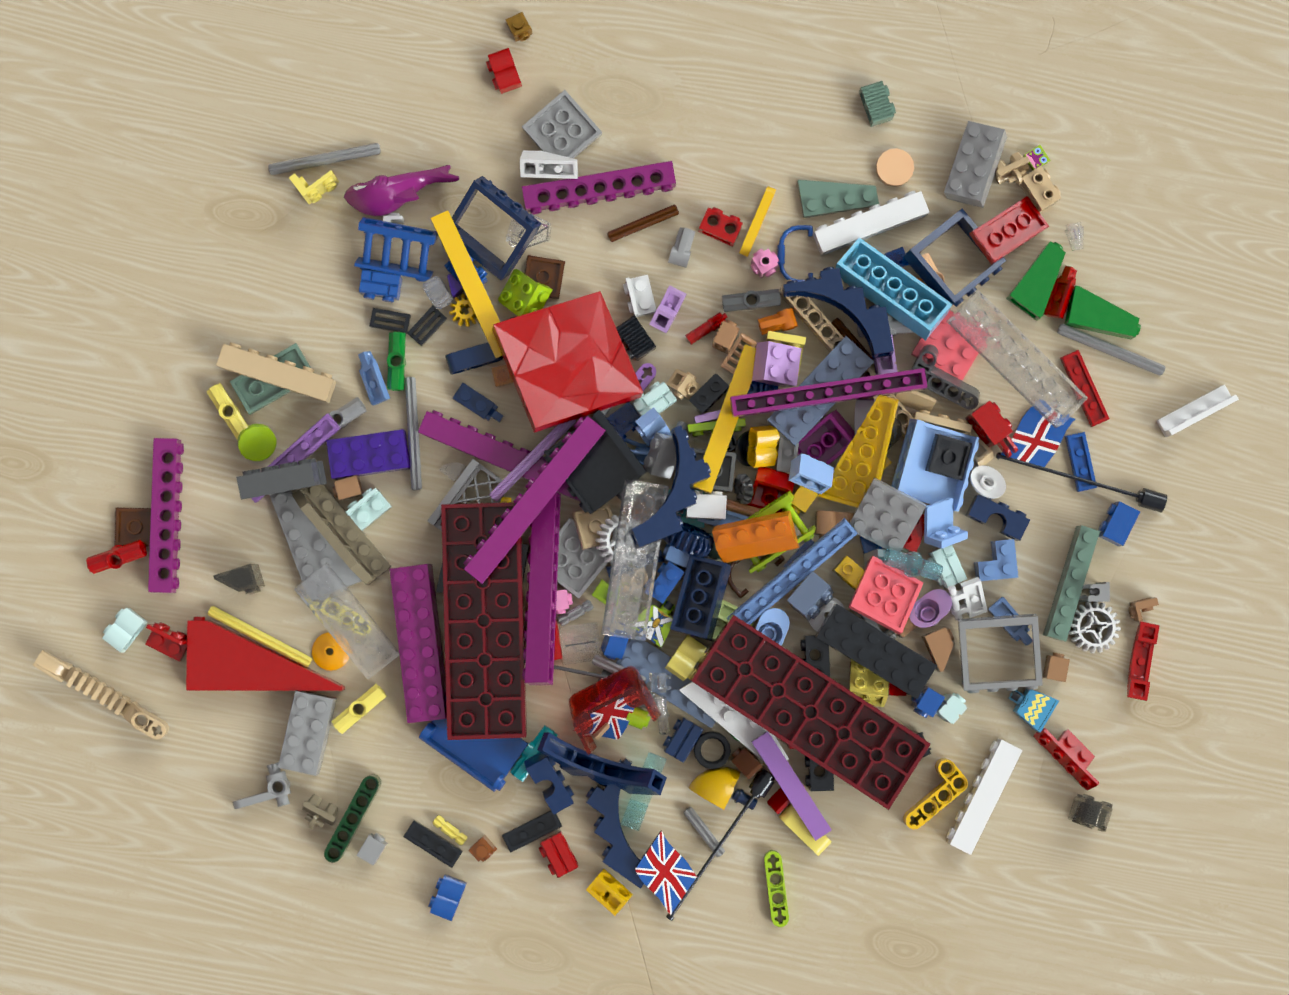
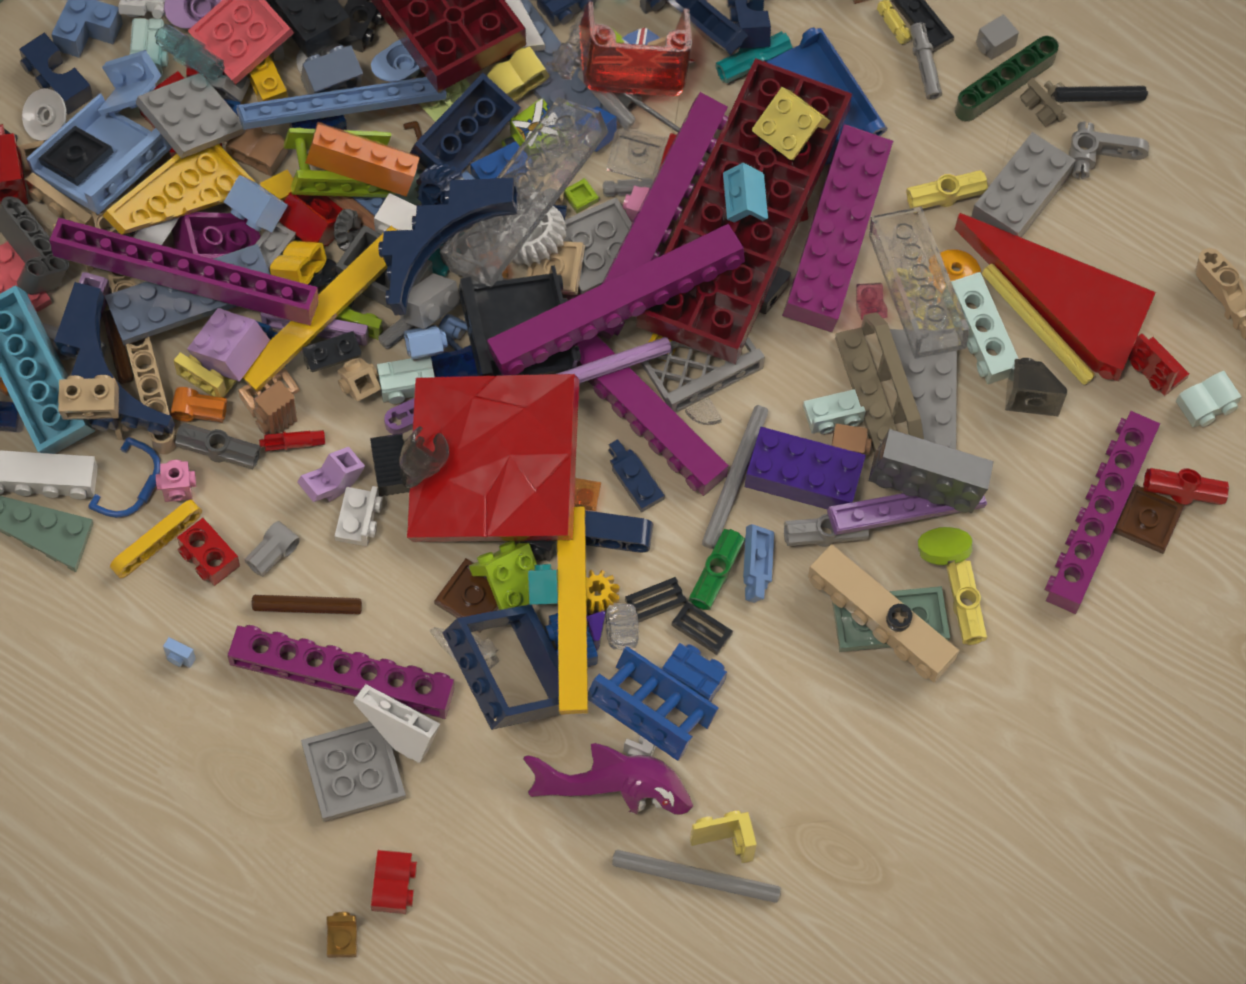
camera: 155 degrees left, 20 degrees down
(260, 373) = (894, 624): none -> black bush
(269, 595) = (993, 368): none -> light aqua brick
(282, 833) = (1100, 93): none -> black axle
(375, 597) = (870, 300): none -> clear pink bracket
(414, 806) = (923, 51): none -> light grey pin
(477, 692) = (788, 123): none -> light yellow bracket
(484, 621) = (745, 193): none -> medium azure panel
(497, 292) = (543, 585): none -> teal brick
(609, 334) = (418, 461): none -> clear smoke helmet
(704, 153) = (179, 653): none -> light blue plate
(841, 274) = (88, 397): none -> tan brick

